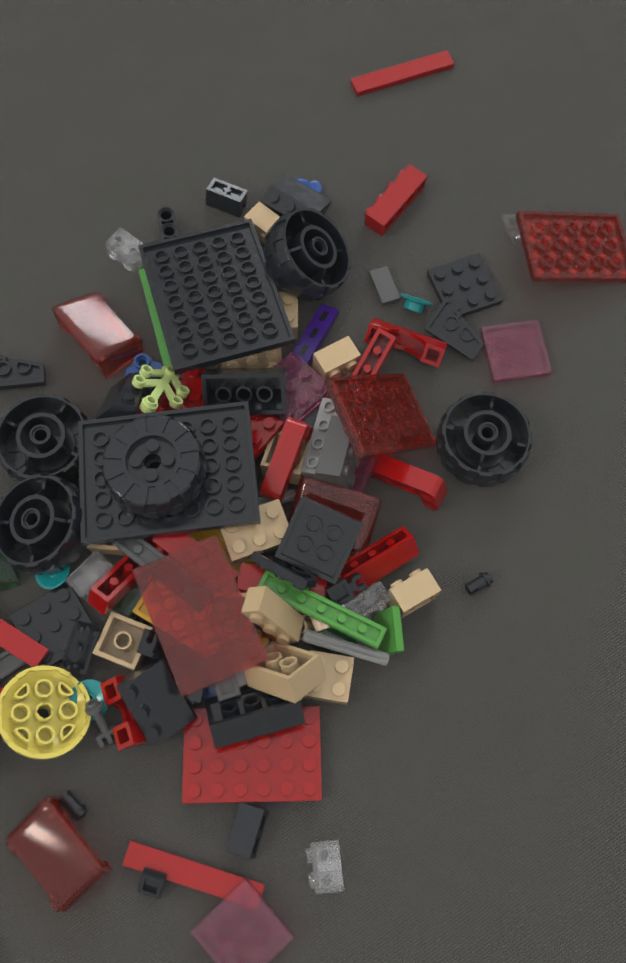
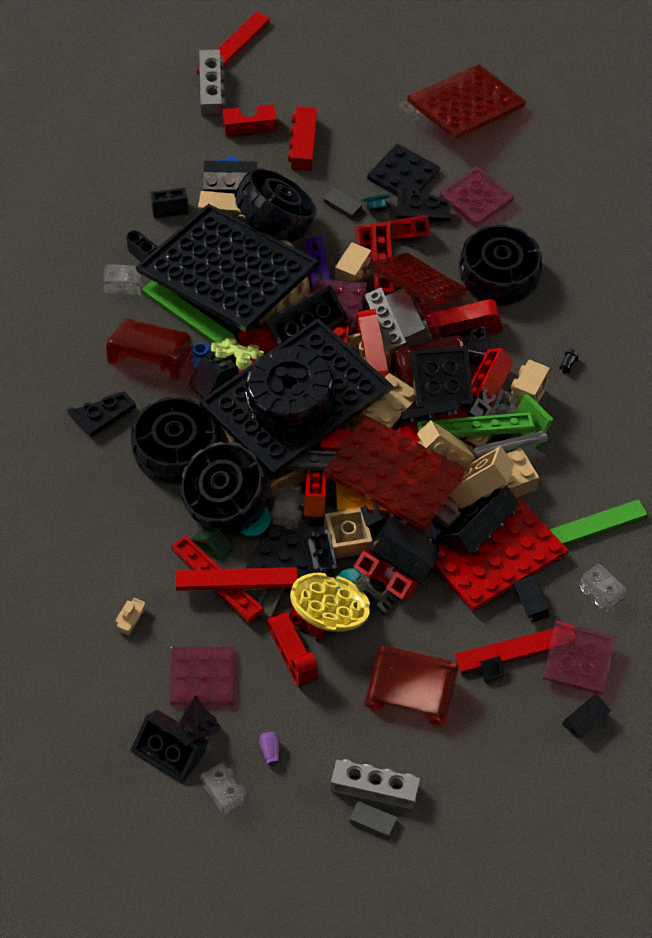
camera: 30 degrees left, 15 degrees down
(351, 98) = (210, 82): none -> light grey brick
(370, 162) = (262, 122): none -> red arch
(378, 785) = (600, 522): none -> bright green tile
(395, 515) = (476, 345): none -> black piece

